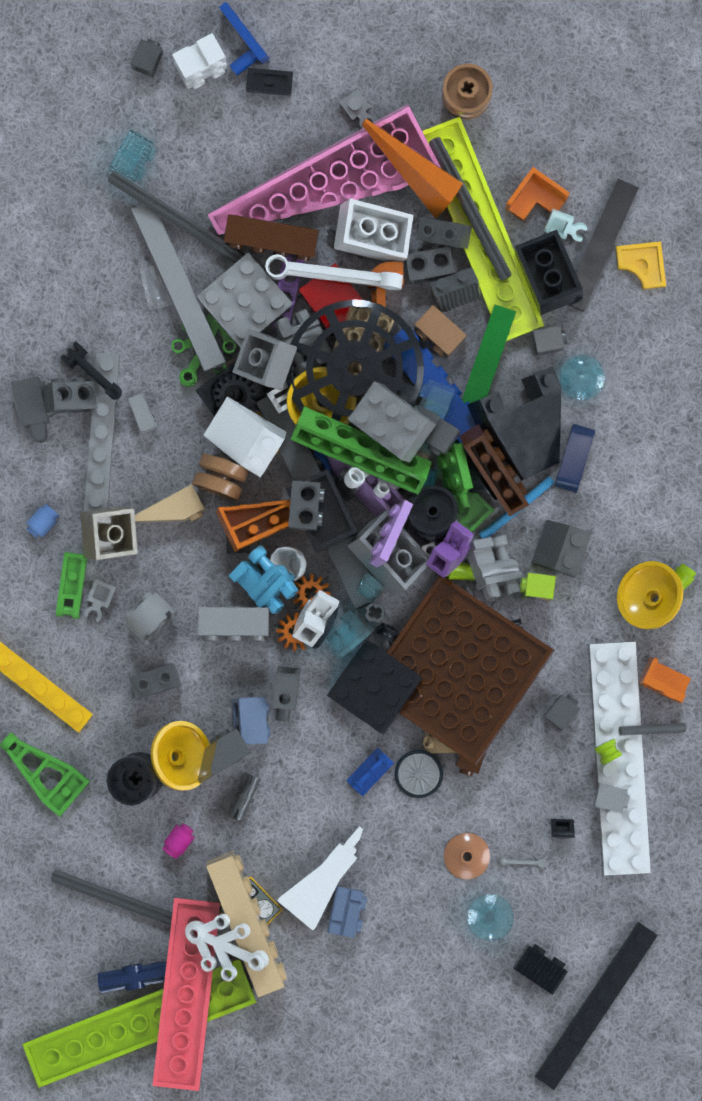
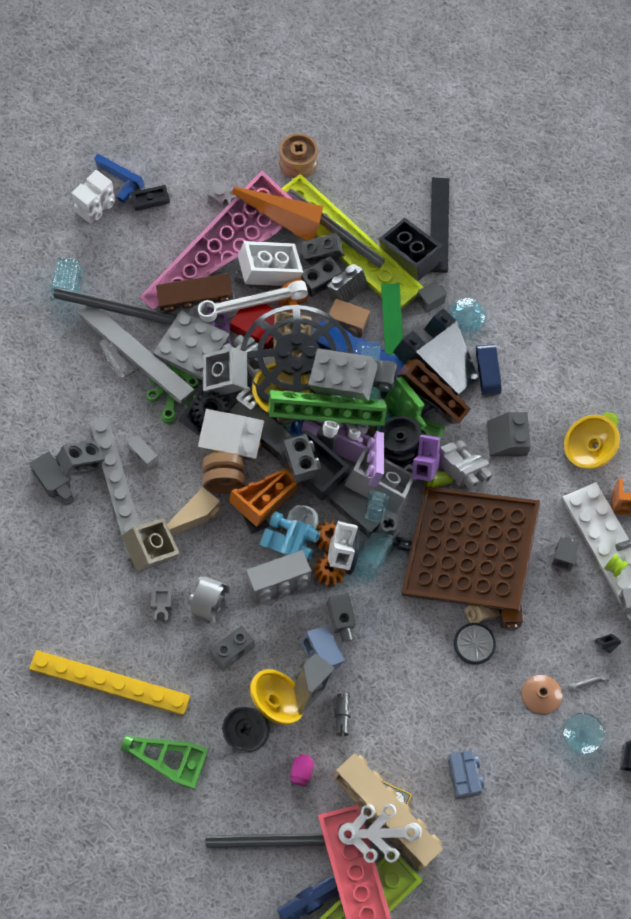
camera: 25 degrees left, 20 degrees down
(42, 521) = (92, 559): medium blue brick -> none
(71, 584) = (134, 599): bright green plate -> none
(112, 389) = (75, 430): black hinge -> none
(147, 57) = (52, 210): dark grey brick -> none
(311, 894) = (431, 770): white piece -> none
(370, 771) = (435, 656): blue hinge -> none
(375, 687) = (411, 586): black plate -> none
(504, 518) = (457, 427): dark azure bar -> none
(536, 189) = (377, 202): orange panel -> none
(537, 586) = (505, 465): lime brick -> none
(564, 225) = (408, 214): light aqua plate -> none
(643, 261) = (475, 224): yellow tile -> none

